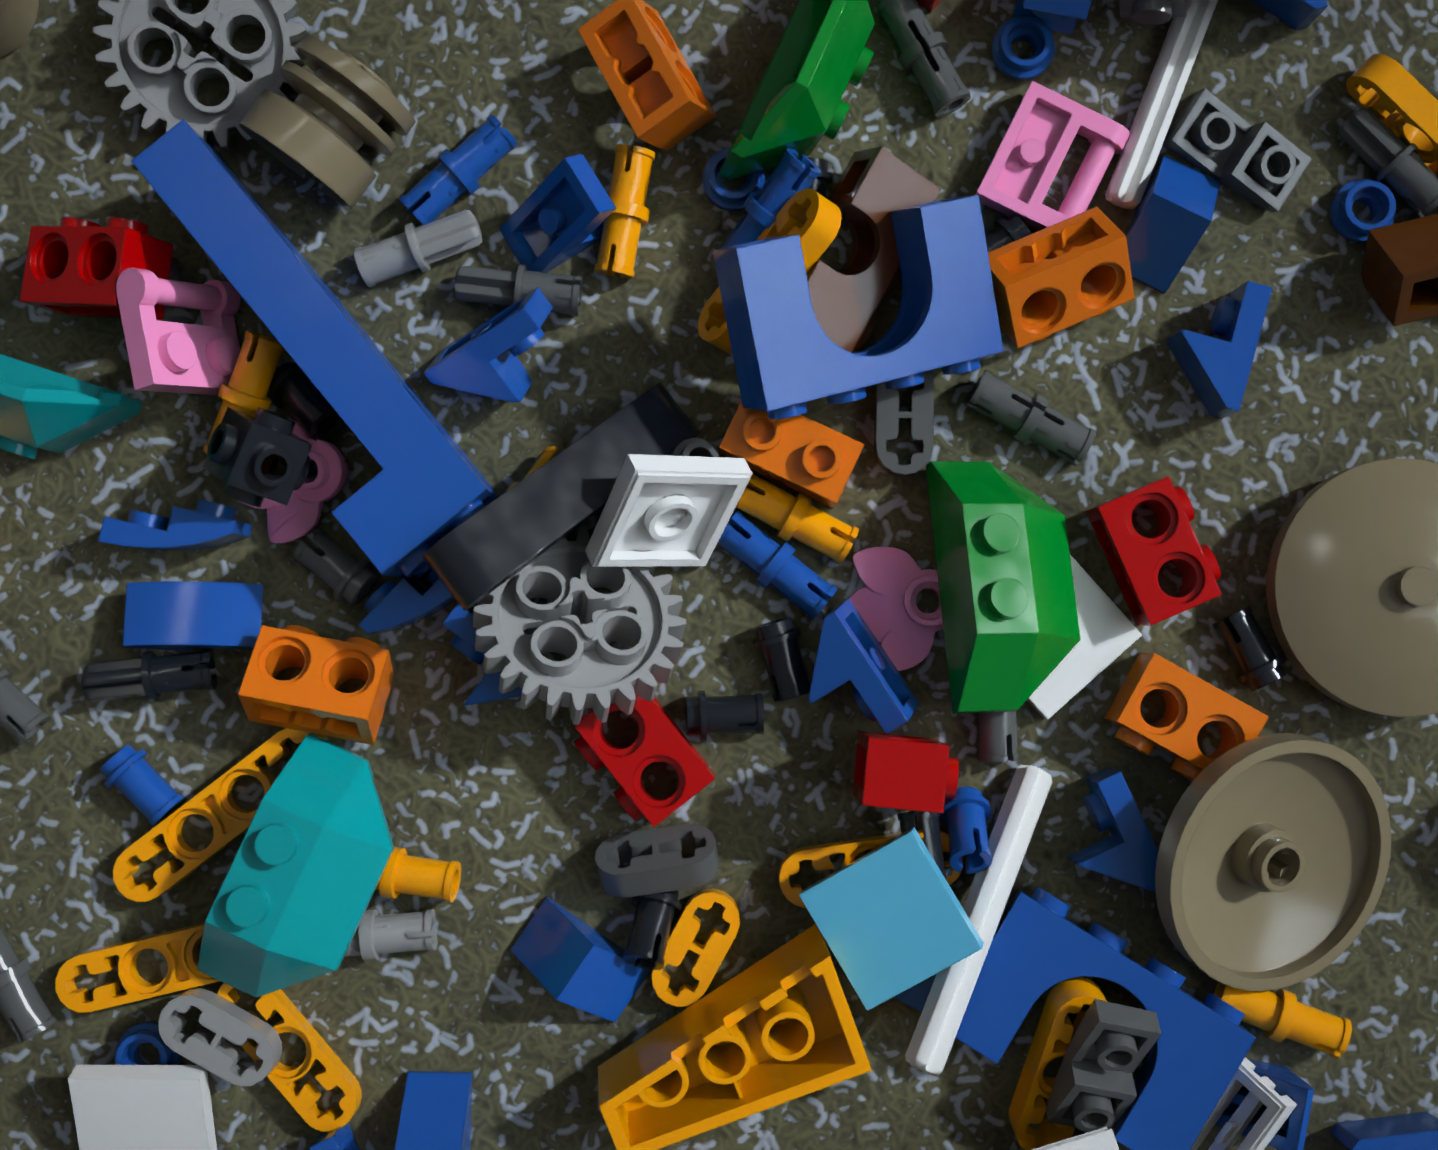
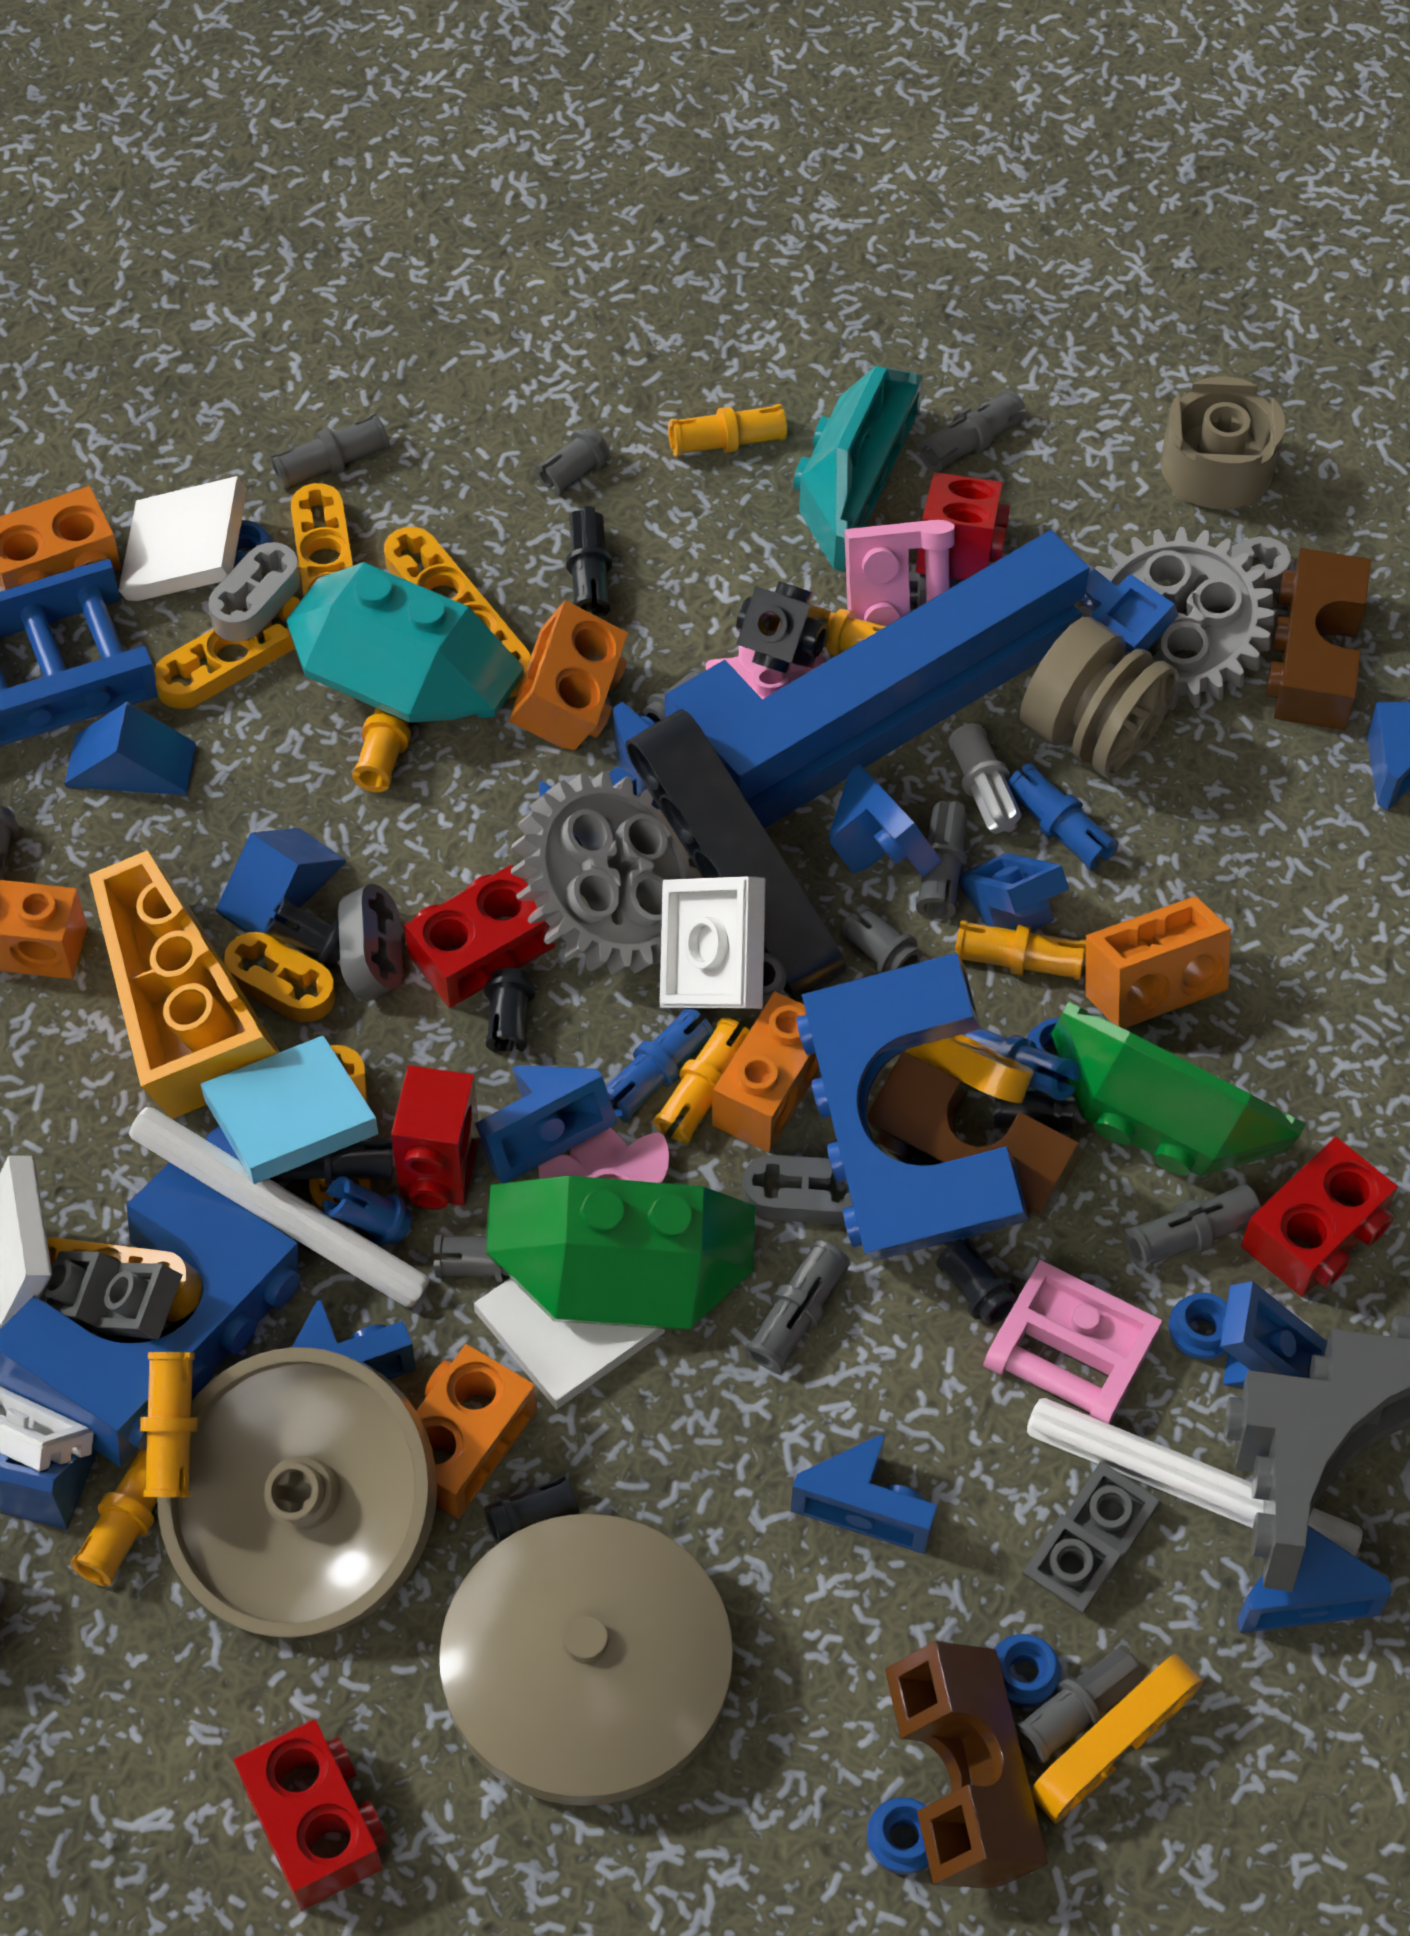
camera: 90 degrees right, 30 degrees down
(140, 784) = (492, 551): blue pin -> none
(187, 530) = (722, 581): blue slope -> none
(192, 615) = (643, 592): blue slope -> none
(219, 86) = (1129, 609): none -> blue plate
(393, 934) = (328, 719): light grey pin -> none
(628, 345) = (880, 940): none -> dark grey pin
(782, 658) = (572, 1054): black pin -> none
(1060, 276) = (942, 1313): orange brick -> none
(1138, 559) = (636, 1396): red brick -> none
(1169, 222) = (1013, 1455): blue slope -> none
(1238, 989) = (169, 1424): none -> light orange pin

